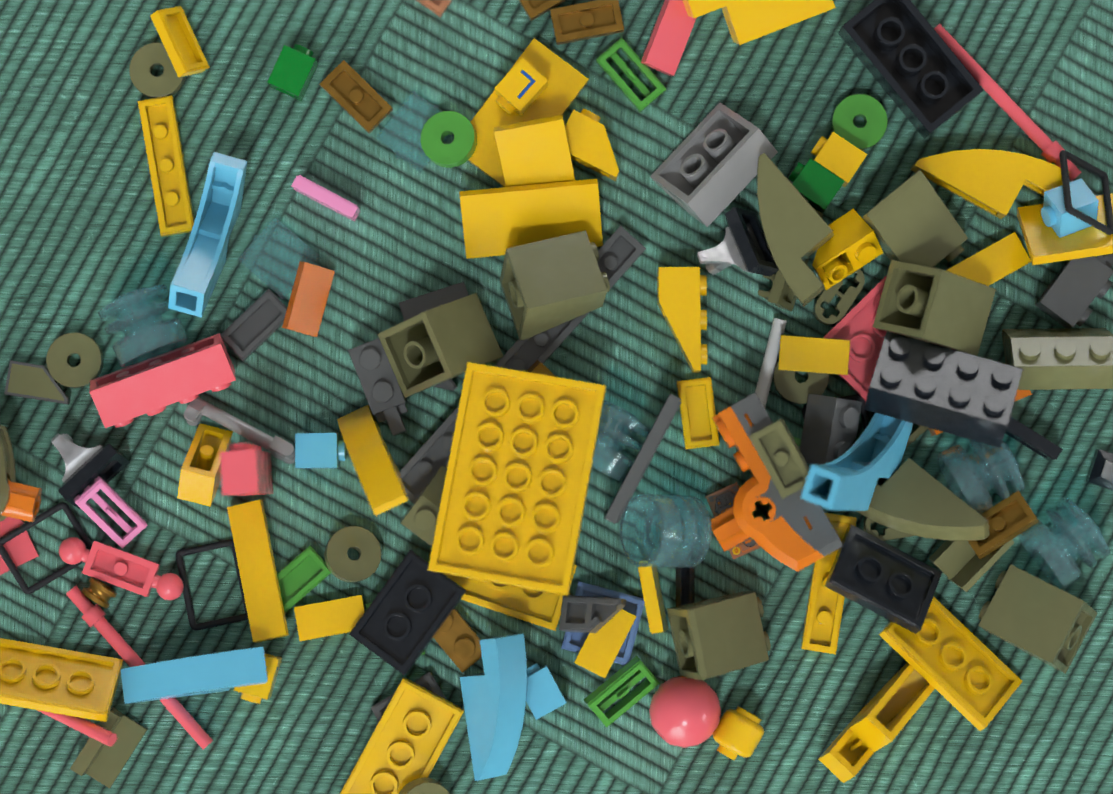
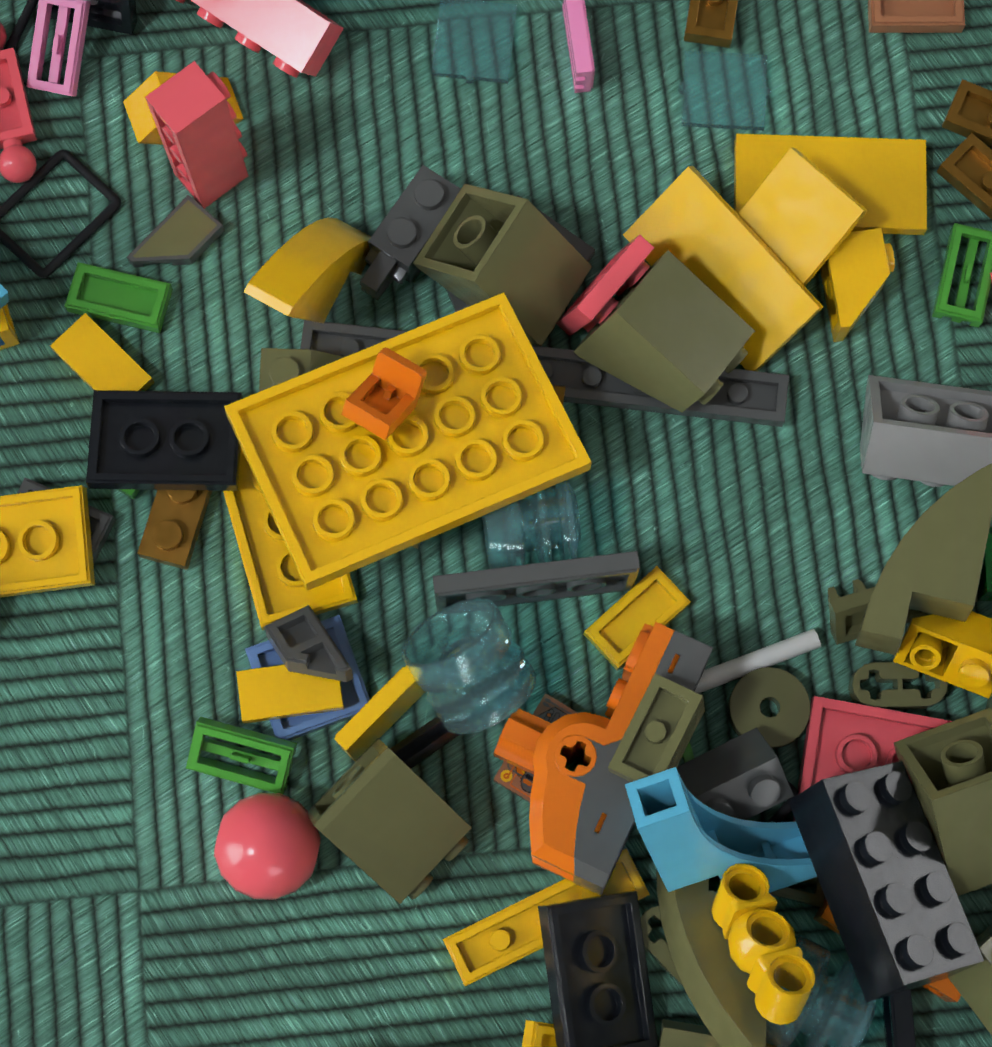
camera: 55 degrees right, 10 degrees down
(255, 325) = (381, 64): dark grey tile -> none
(257, 571) = (98, 245): yellow tile -> none
(277, 446) = (242, 64): light grey hinge -> none
(283, 520) = (179, 237): none -> olive tile
(308, 299) = (450, 96): orange tile -> none
(319, 450) = (280, 211): medium azure brick -> none
(338, 560) = (198, 315): olive piece -> none
(438, 128) = (740, 140): bright green piece -> none
(489, 475) = (386, 394): none -> orange bracket
(493, 287) = (597, 299): none -> coral plate
(496, 705) = (121, 613): medium azure slope -> none
(520, 88) = (861, 155): yellow brick -> none
(542, 691) = (176, 657): medium azure brick -> none
(679, 302) = (755, 500): yellow slope -> none
(738, 733) = (284, 931): yellow head -> none
(742, 246) = (868, 528): black piece -> none
(814, 354) = (807, 701): yellow tile -> none
(945, 489) = (769, 964): none -> yellow piece

